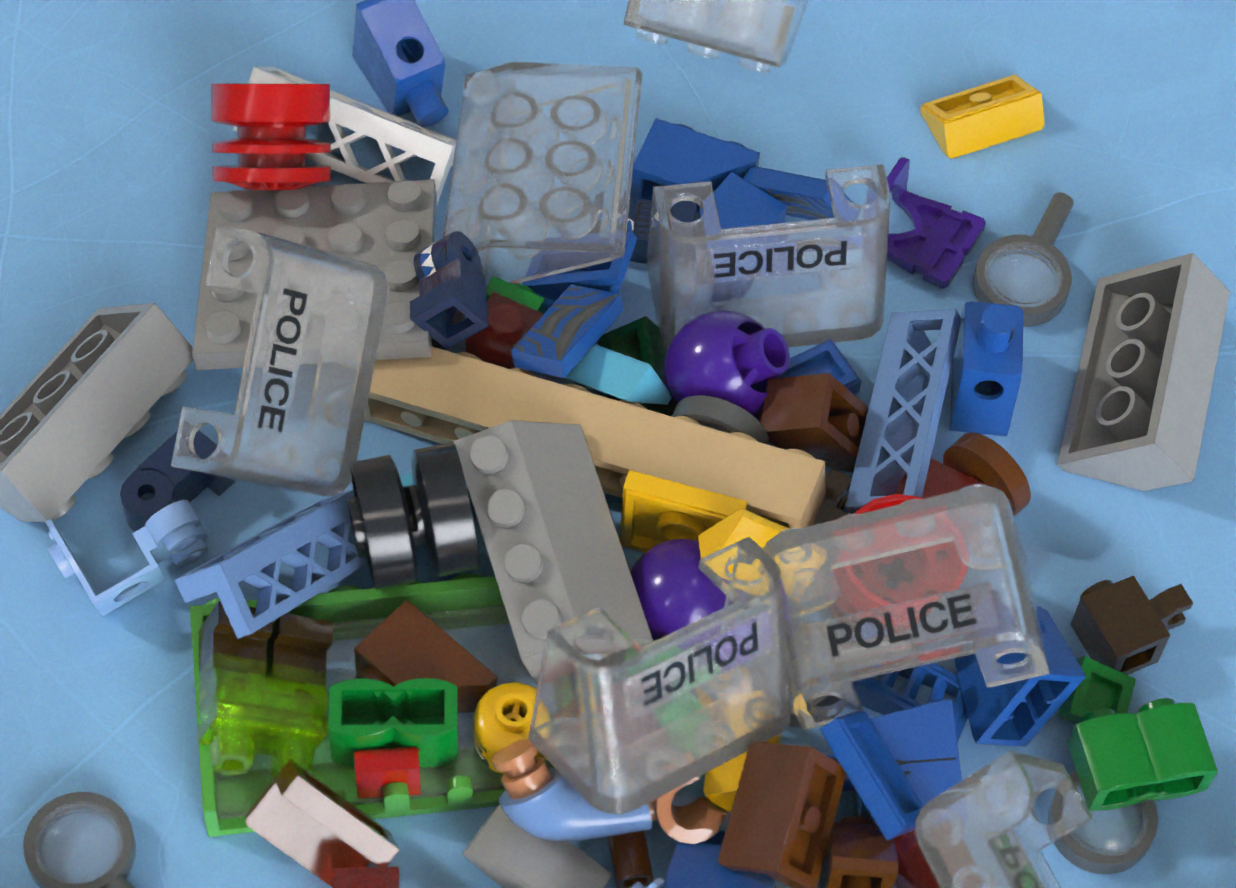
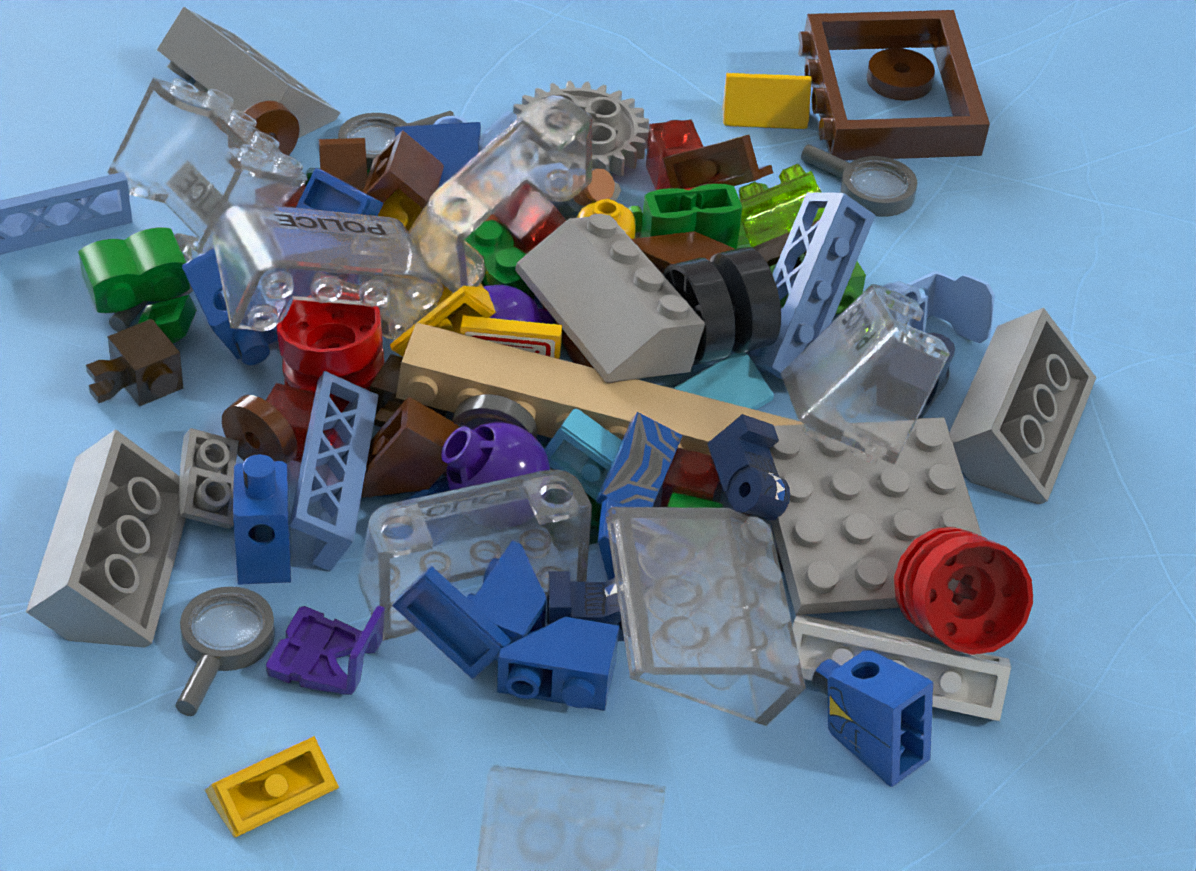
camera: 170 degrees right, 15 degrees down
(1046, 445) = (207, 478): none -> light grey slope

